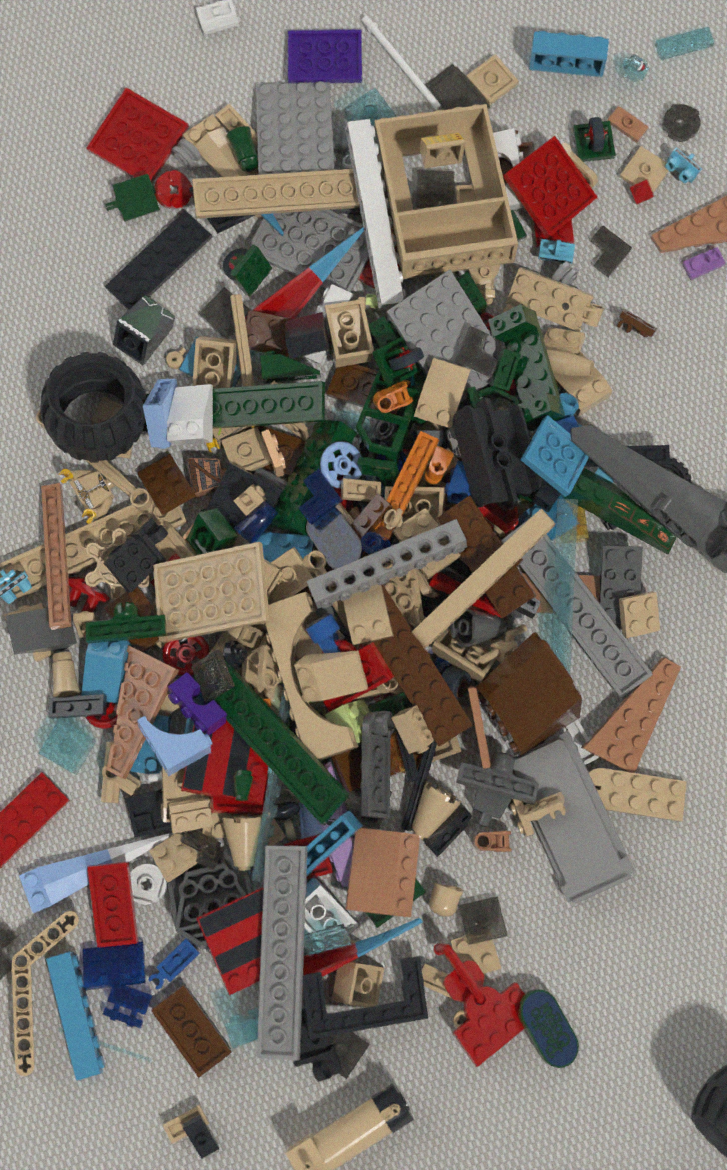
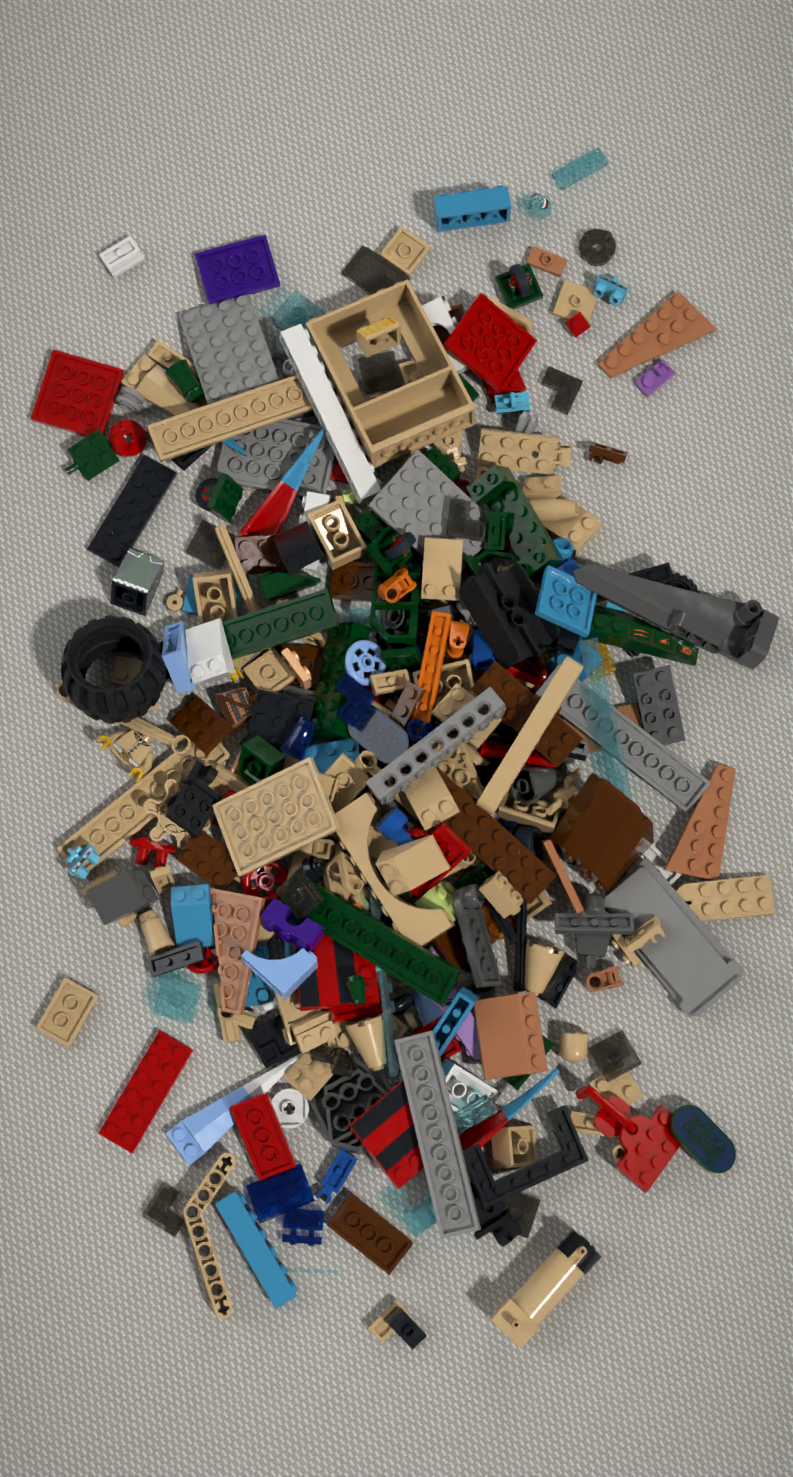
camera: 15 degrees left, 0 degrees up
(56, 556) = (116, 821): nougat plate -> none
(126, 626) = (203, 870): dark green plate -> none
(250, 499) = (287, 718): tan brick -> none
(372, 28) = (275, 229): white bar -> none
(393, 518) = (429, 701): tan plate -> none
(639, 614) = (683, 729): tan plate -> none

